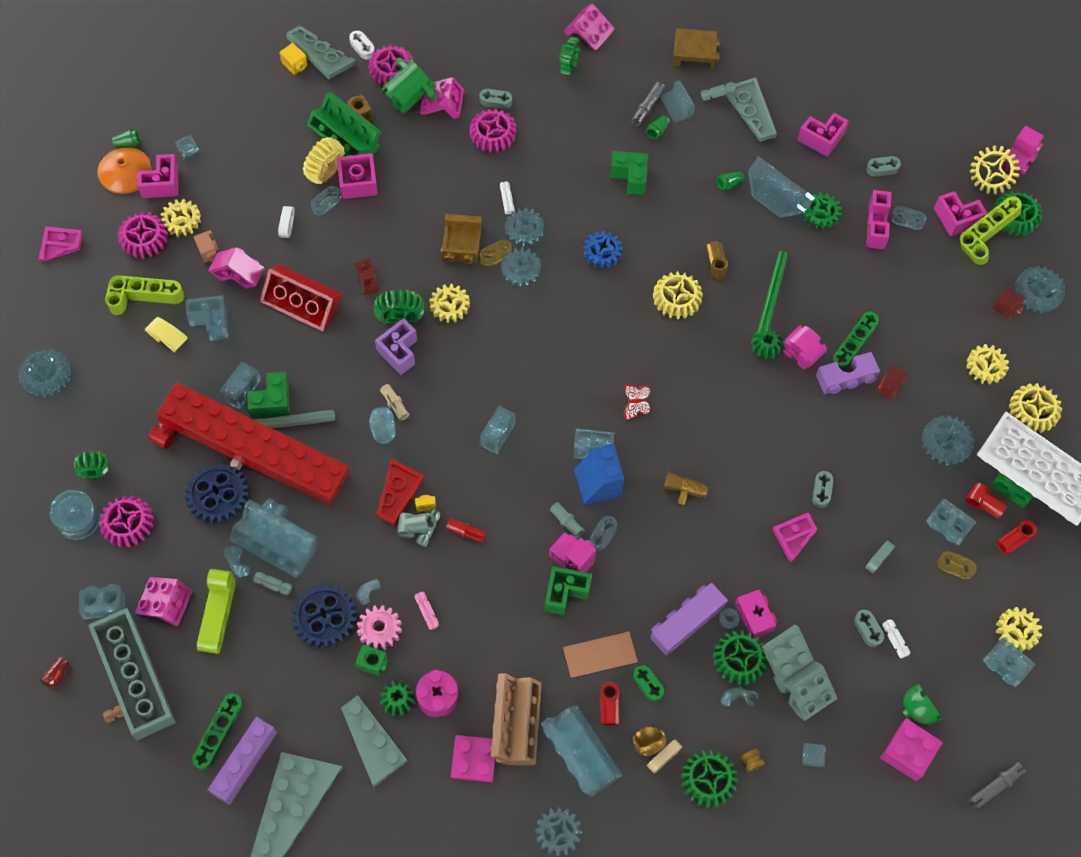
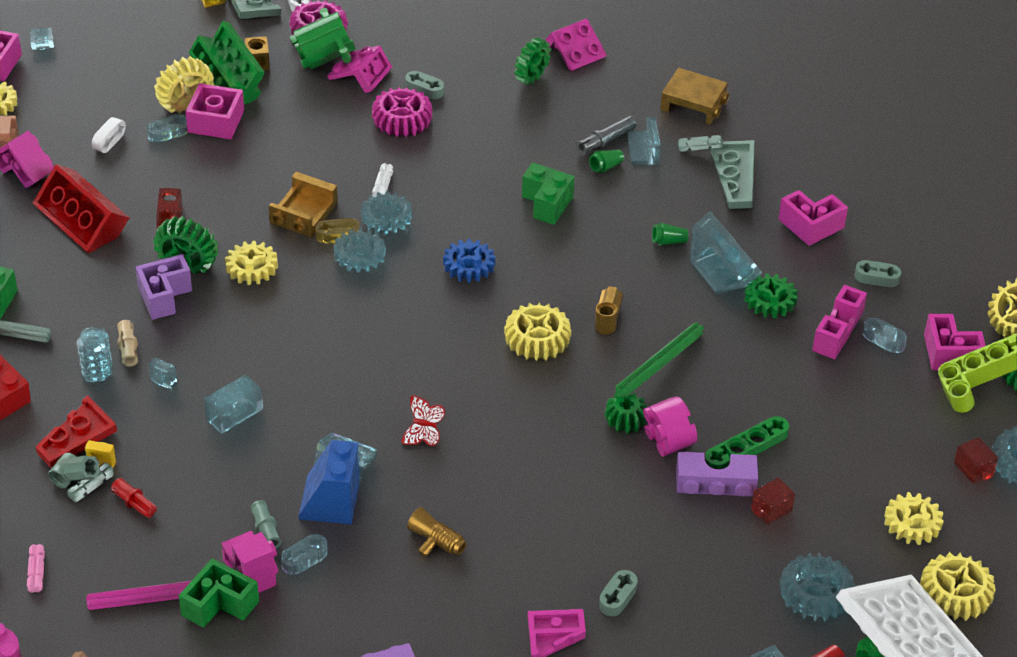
camera: 20 degrees right, 20 degrees down
(434, 421) = (163, 373): none -> clear light blue plate
(510, 605) = (135, 595): none -> dark pink axle

